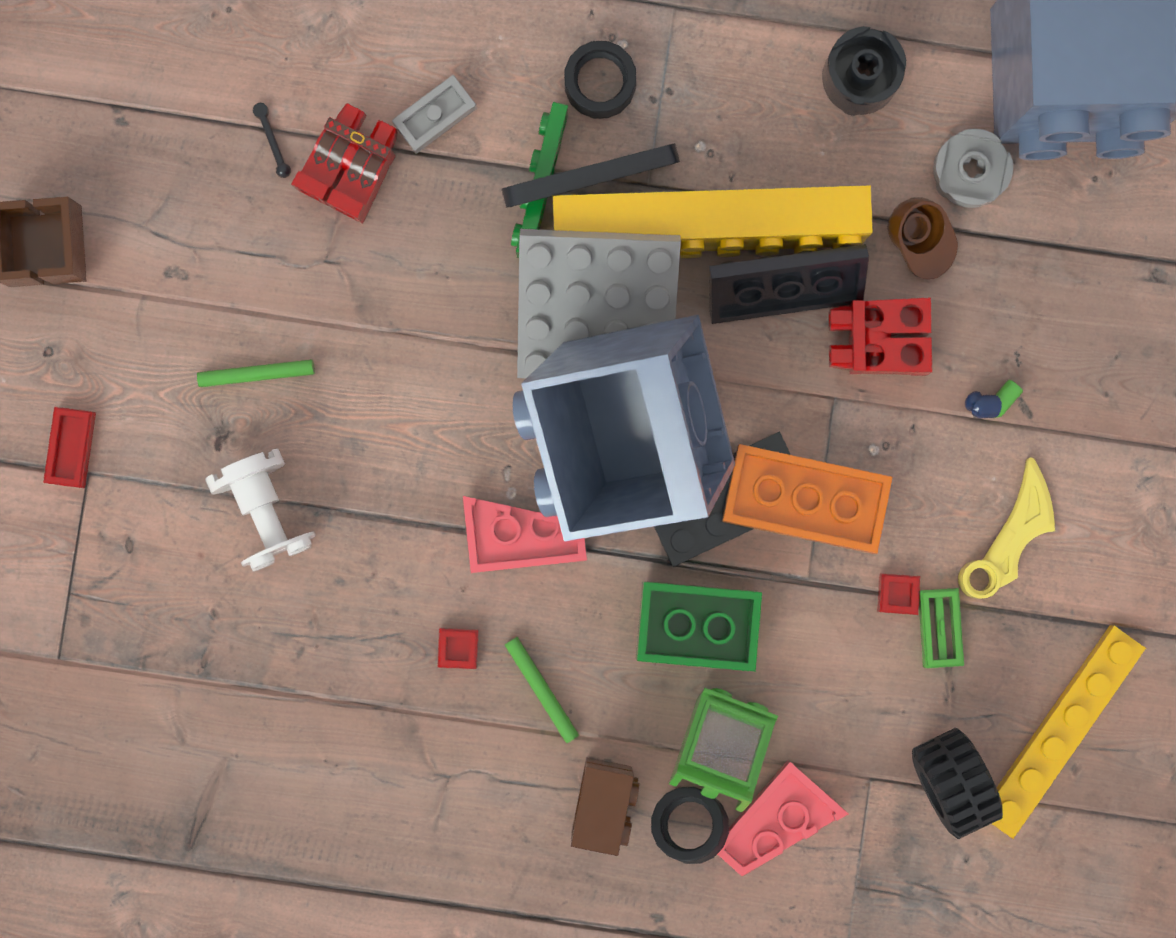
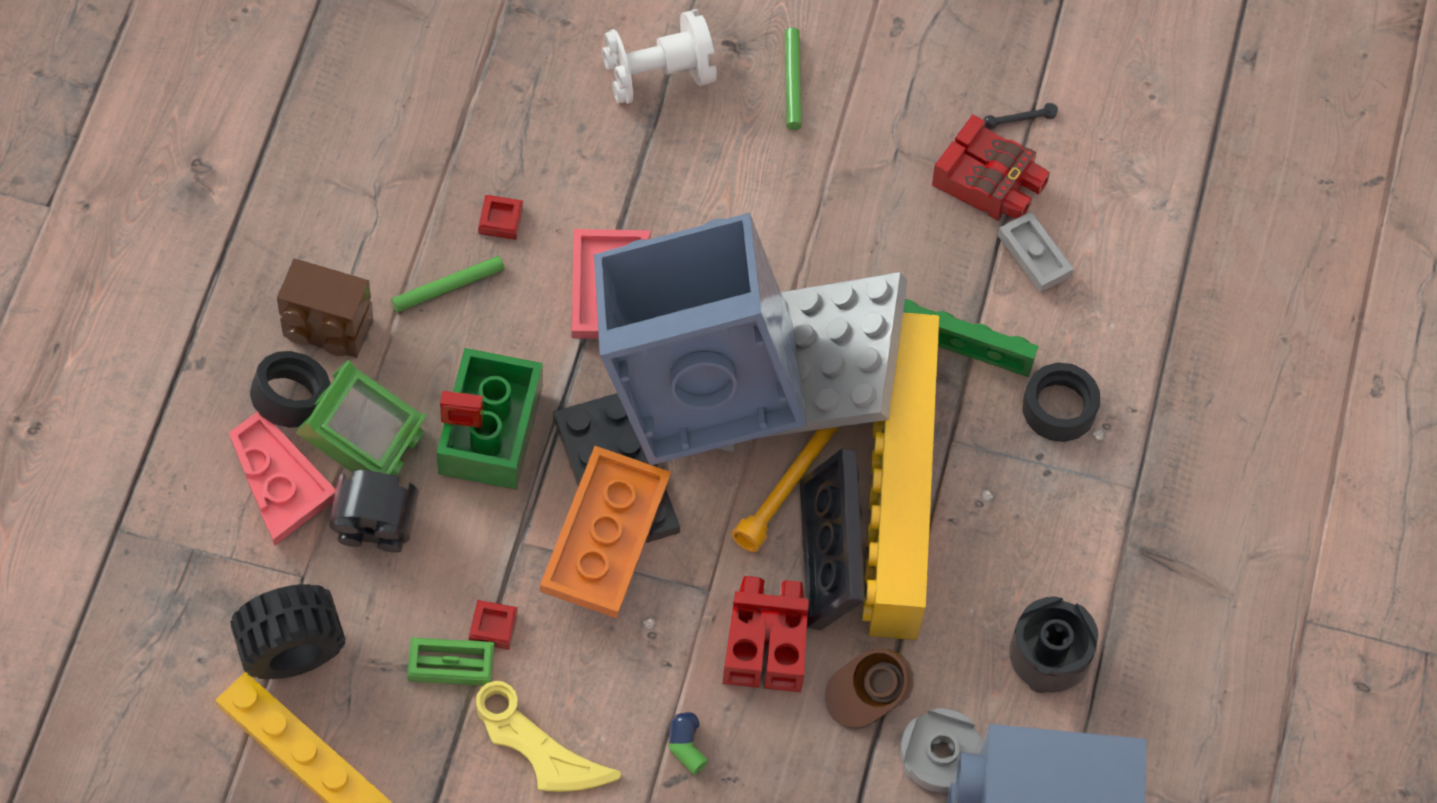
camera: 95 degrees right, 25 degrees down
(590, 175) = (960, 370): black beam -> none
(717, 653) = (461, 409): none -> red tile
(773, 361) = (751, 532): none -> light orange piece
(814, 723) = (373, 510): none -> black brick

